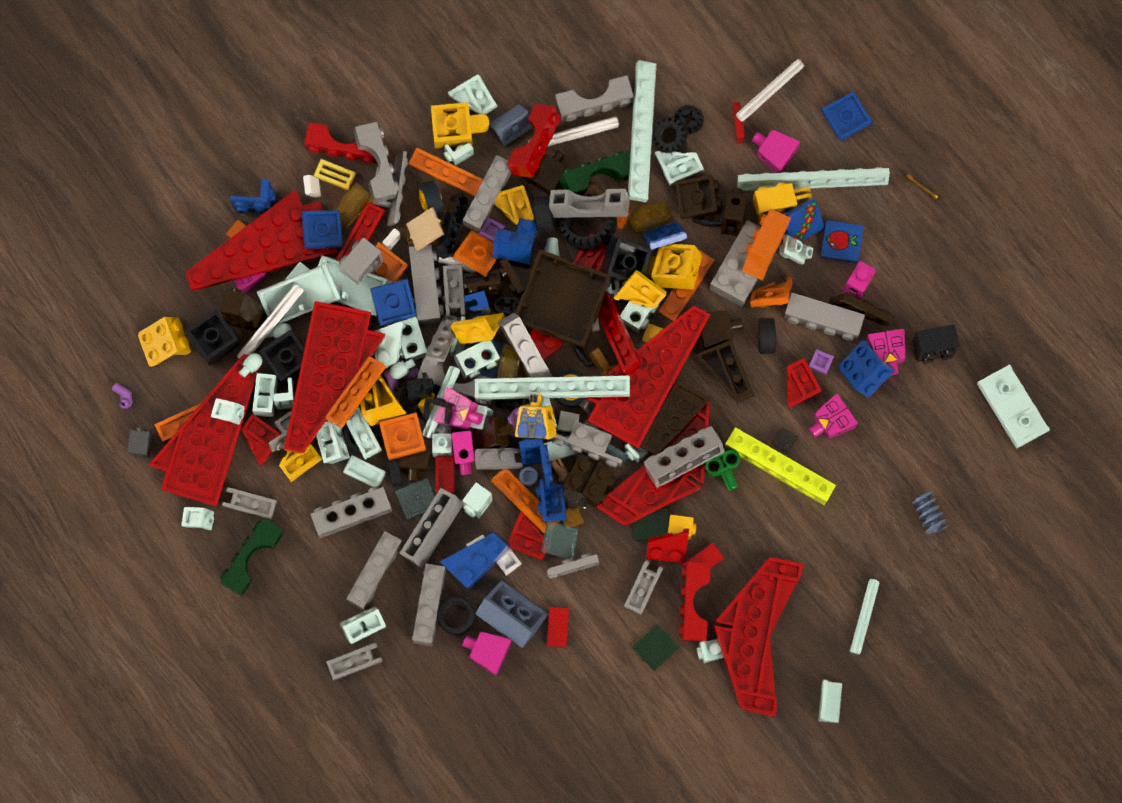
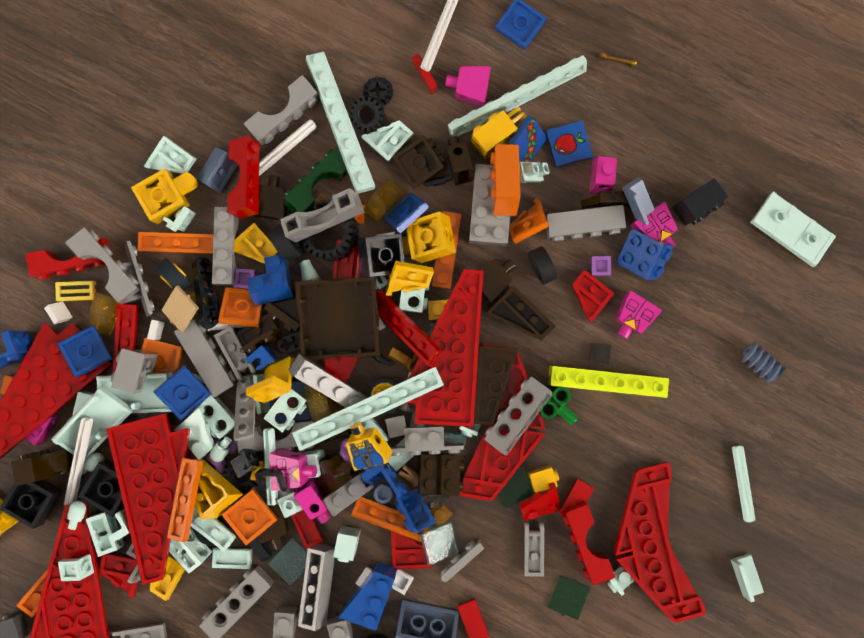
camera: 25 degrees left, 10 degrees up
(879, 314) = (639, 200): none -> sand blue panel

